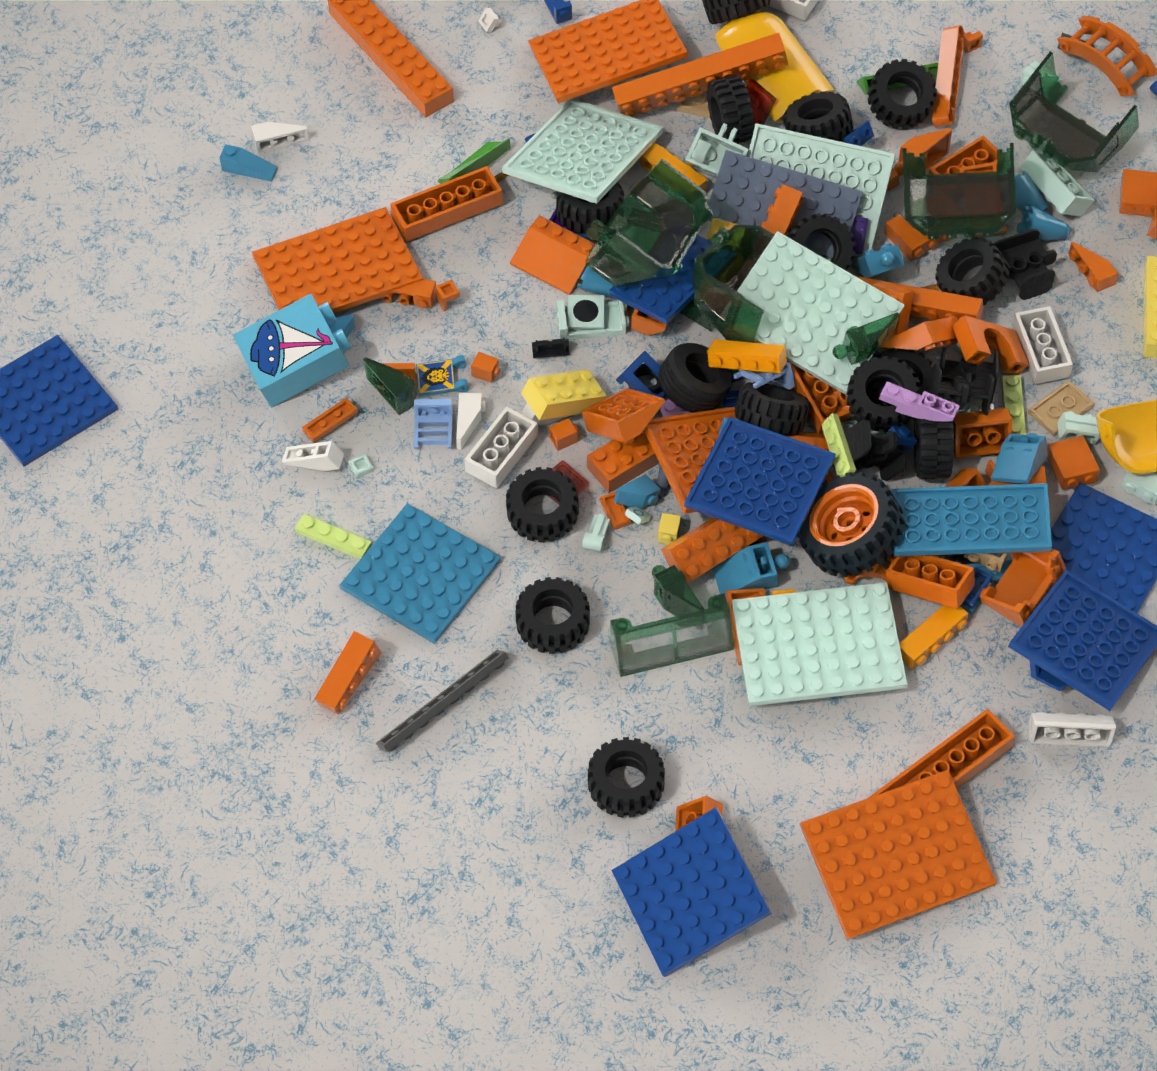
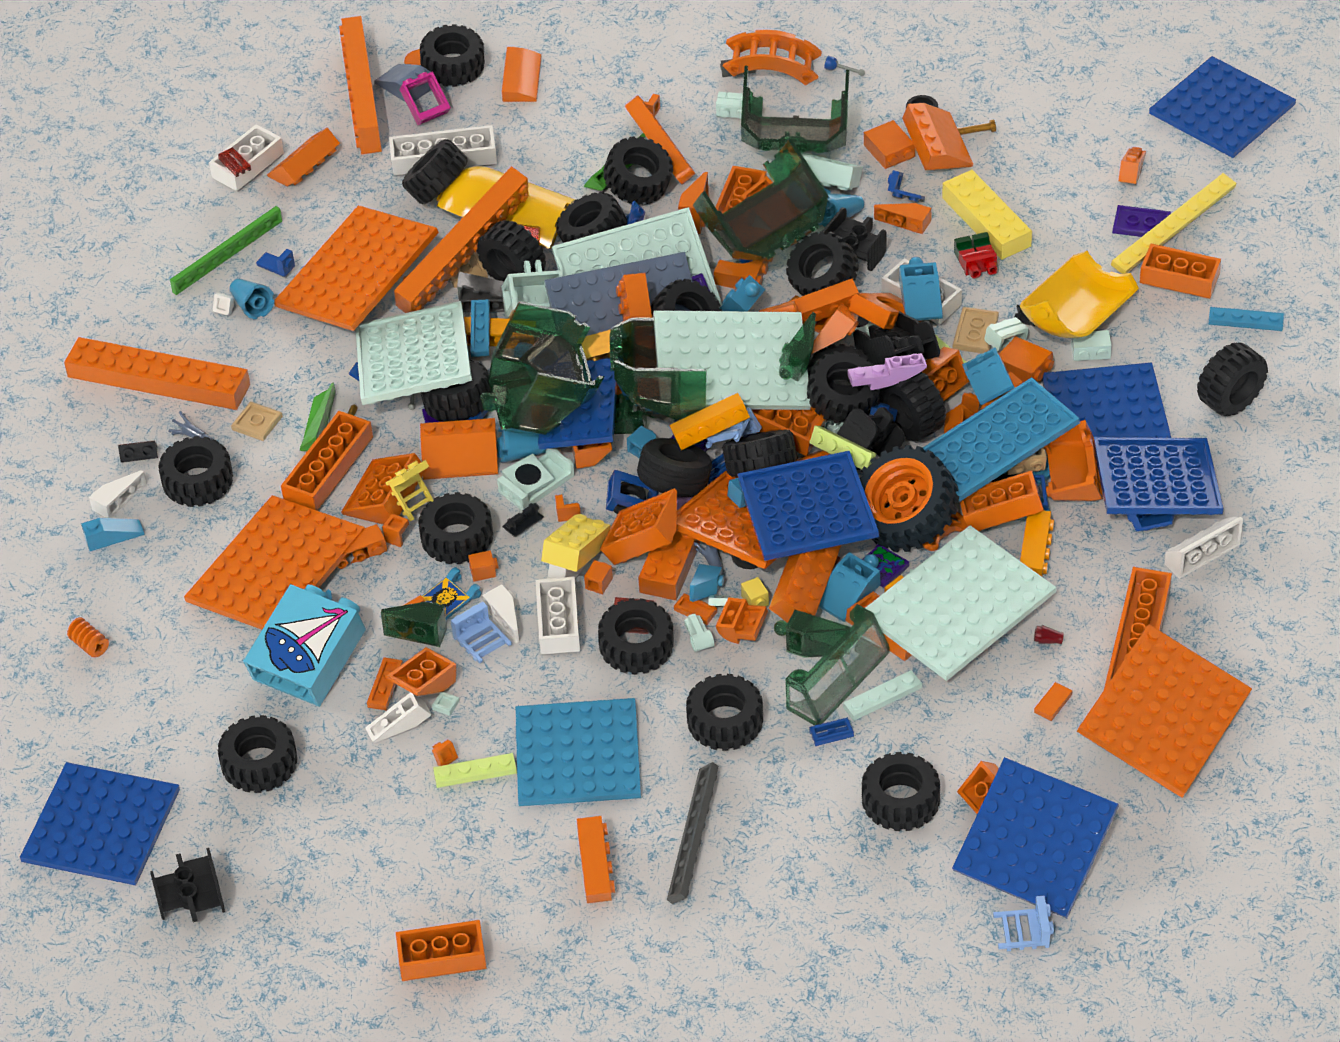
camera: 35 degrees left, 10 degrees down
(58, 500) = (190, 886): none -> black piece
(155, 242) = (87, 637): none -> orange piece
(175, 669) = (440, 950): none -> orange brick
(181, 399) = (261, 773): none -> black tyre
(320, 507) = (444, 753): none -> orange tile
(322, 108) = (138, 451): none -> black hinge
(340, 135) = (197, 488): none -> black tyre
(356, 432) = (425, 673): none -> orange slope
(374, 113) = (187, 428): none -> sand blue piece
(430, 136) = (256, 421): none -> tan tile
(471, 254) = (372, 496): none -> orange slope
(481, 256) = (404, 479): none -> light yellow plate
(486, 304) = (453, 510): none -> black tyre
(511, 28) = (252, 297): none -> dark azure cone
(591, 361) = (566, 511): none -> orange panel
(624, 690) = (832, 734): none -> blue tile
(633, 968) = (1038, 923): none -> light blue plate
(636, 544) = (740, 620): none -> orange brick
(664, 150) = (480, 327): none -> dark azure tile
(681, 125) = (479, 288): none -> flat silver wedge
(693, 683) = (882, 695): none -> light aqua plate
(700, 335) = (638, 439): none -> dark azure slope
(798, 573) = (889, 564): none -> tile
(823, 782) = (1053, 701): none -> orange tile
(870, 721) = (1046, 635): none -> dark red cone
(1031, 344) = (920, 290): none -> dark azure slope
(1107, 235) = (894, 182): none -> blue bracket
(1118, 346) = (976, 254): none -> red hips

